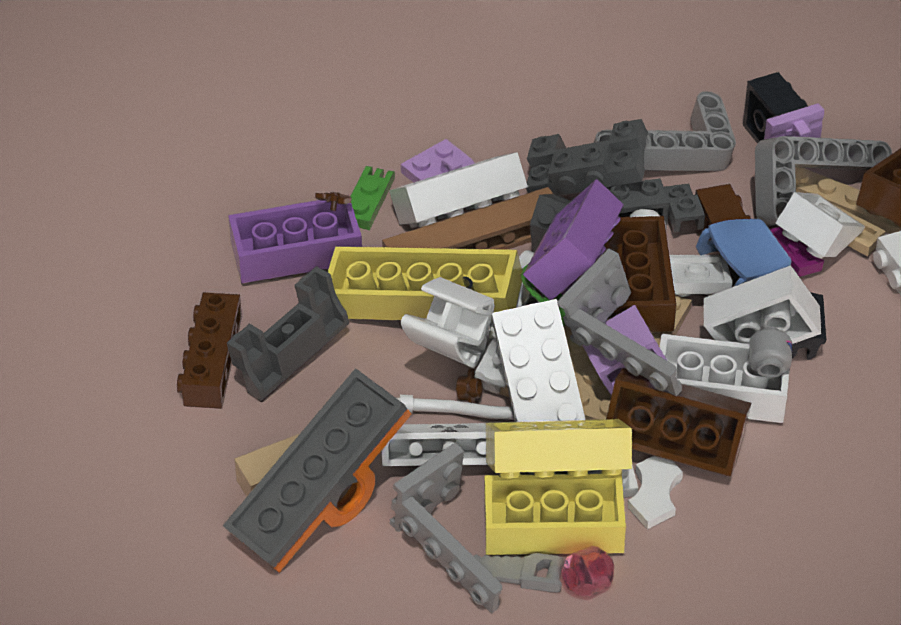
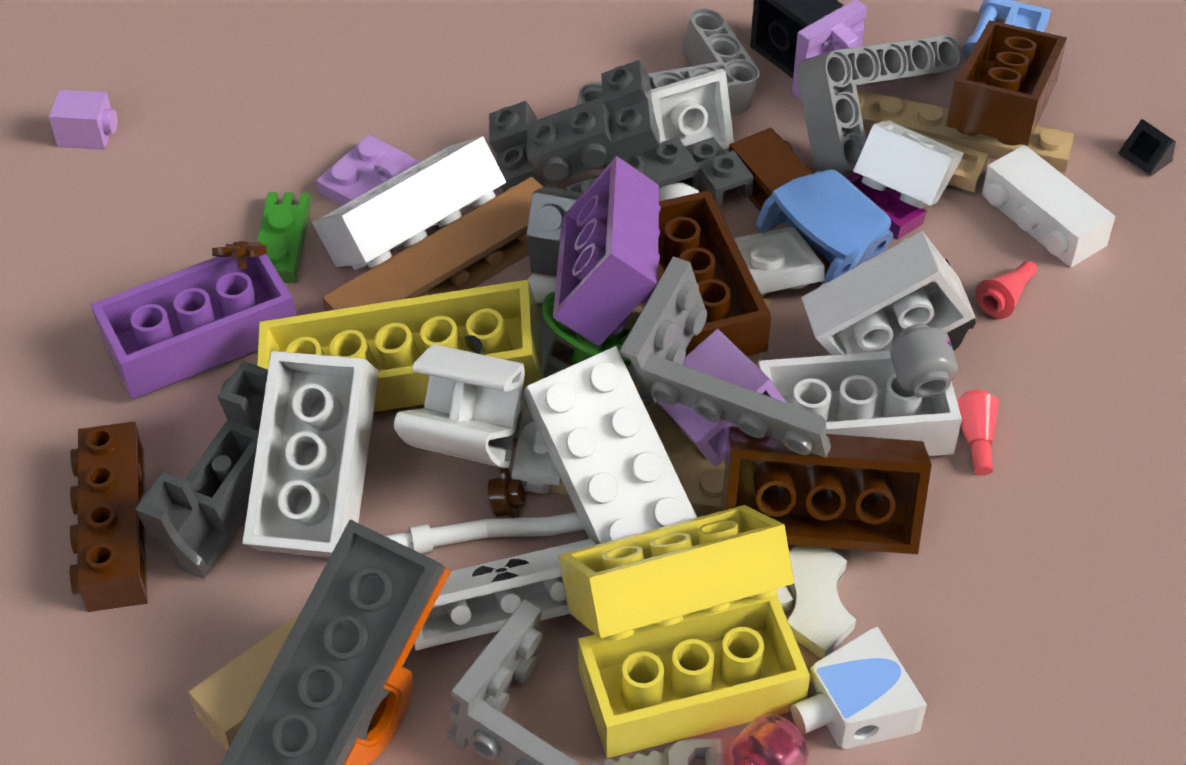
camera: 15 degrees left, 5 degrees up
(252, 94) = (82, 119): none -> lavender brick
(346, 329) = (310, 452): none -> white brick
(660, 550) = (861, 695): none -> white torso
(676, 161) = (694, 109): none -> white slope
(807, 401) = (978, 424): none -> coral cone
(857, 326) = (1001, 293): none -> coral cone

